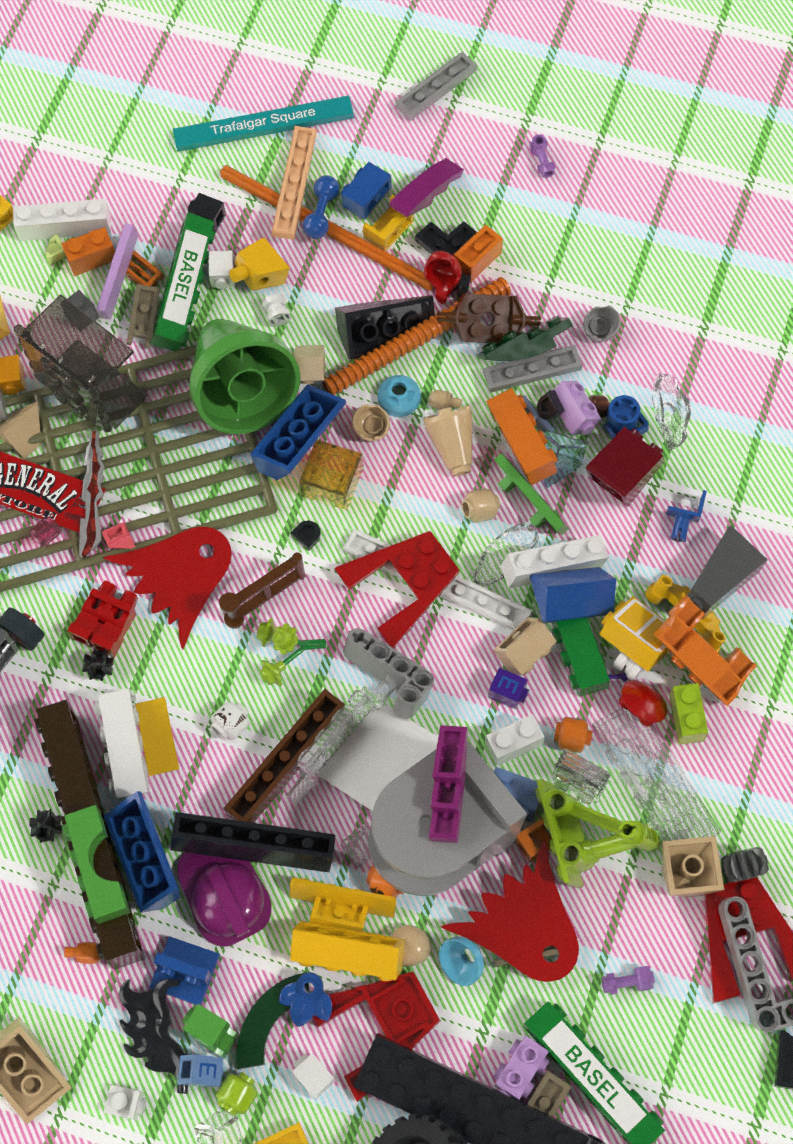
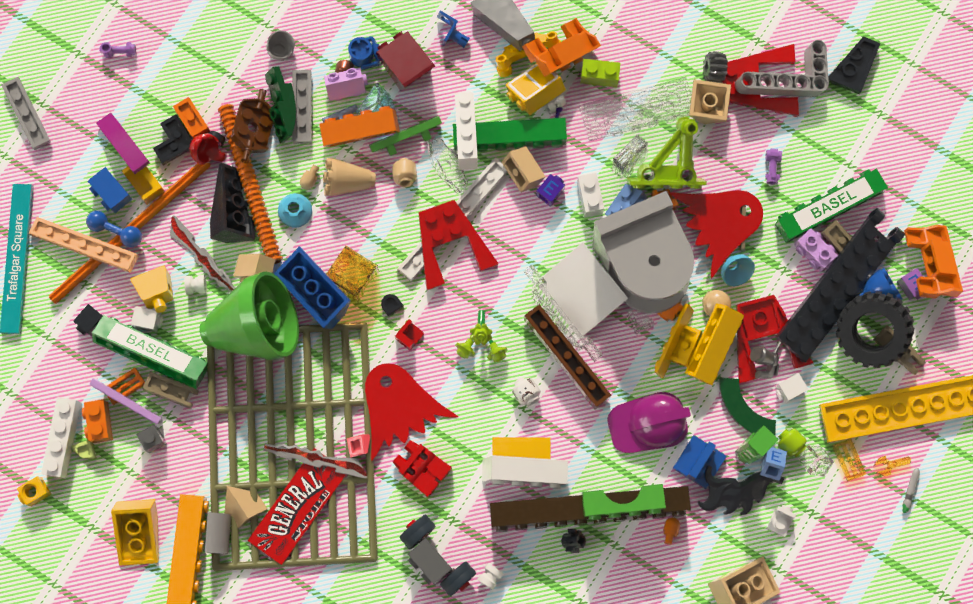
camera: 80 degrees left, 10 degrees up
(45, 531) = (340, 499): clear pink brick -> none
(80, 364) = (215, 439): clear smoke windscreen -> none
(93, 669) = (458, 479): black gear -> none
(142, 854) = (614, 471): blue slope -> none
(230, 602) = (443, 367): reddish brown piece -> none
(252, 842) = (624, 392): black brick -> none
(268, 558) = (409, 335): none -> red panel
(305, 1003) = (743, 380): blue plate -> none
(313, 311) = (202, 257): none -> light grey sword
(347, 1023) = (764, 357): none -> flat silver piece
(371, 422) = (315, 235): tan hair -> none
(381, 661) = (515, 271): light grey beam -> none
(448, 784) = (634, 237): magenta slope -> none
(549, 405) = (339, 101): black tile -> none
(572, 734) = (595, 155): orange head -> none
(574, 594) = (495, 122): blue slope -> none
(643, 702) = (585, 100): red dish -> none
(672, 426) = (350, 17): clear piece -> none

